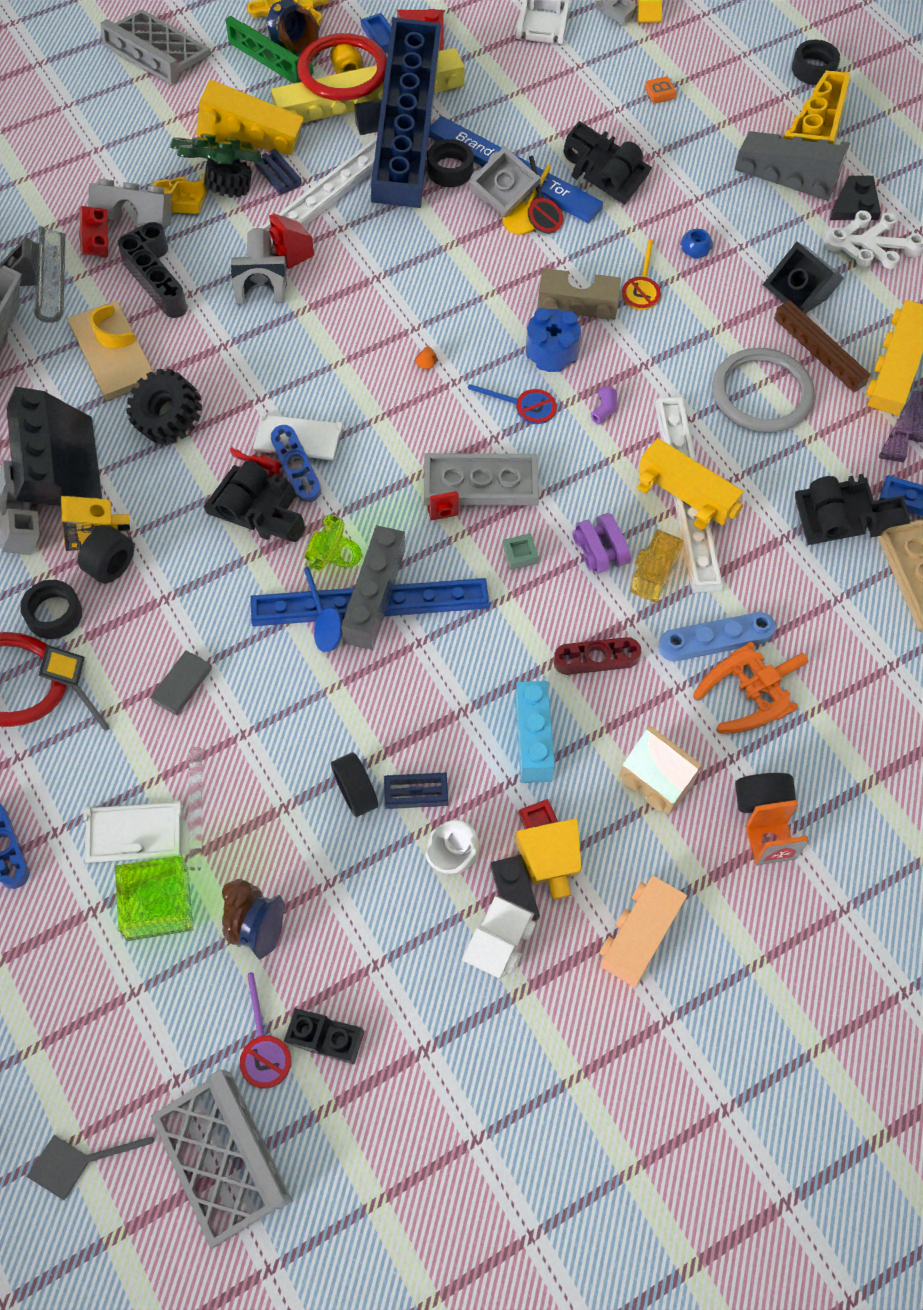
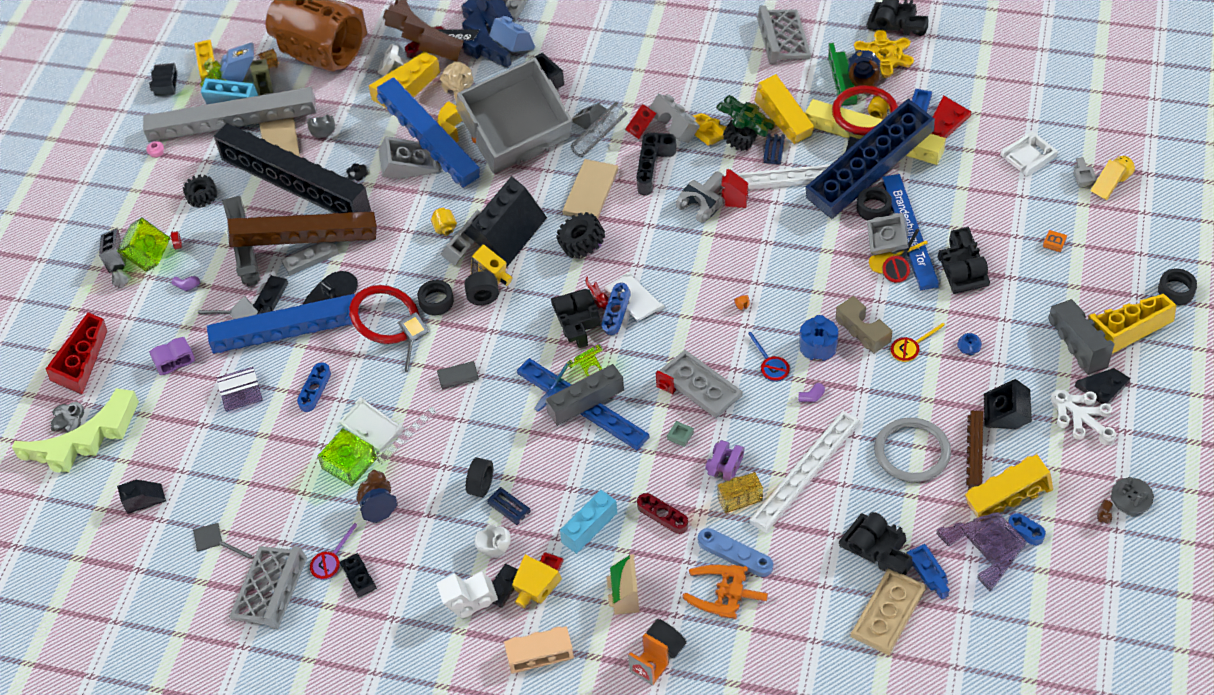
camera: 50 degrees right, 10 degrees down
(107, 339) = (593, 169): yellow helmet -> none
(690, 482) = (804, 464): yellow brick -> none

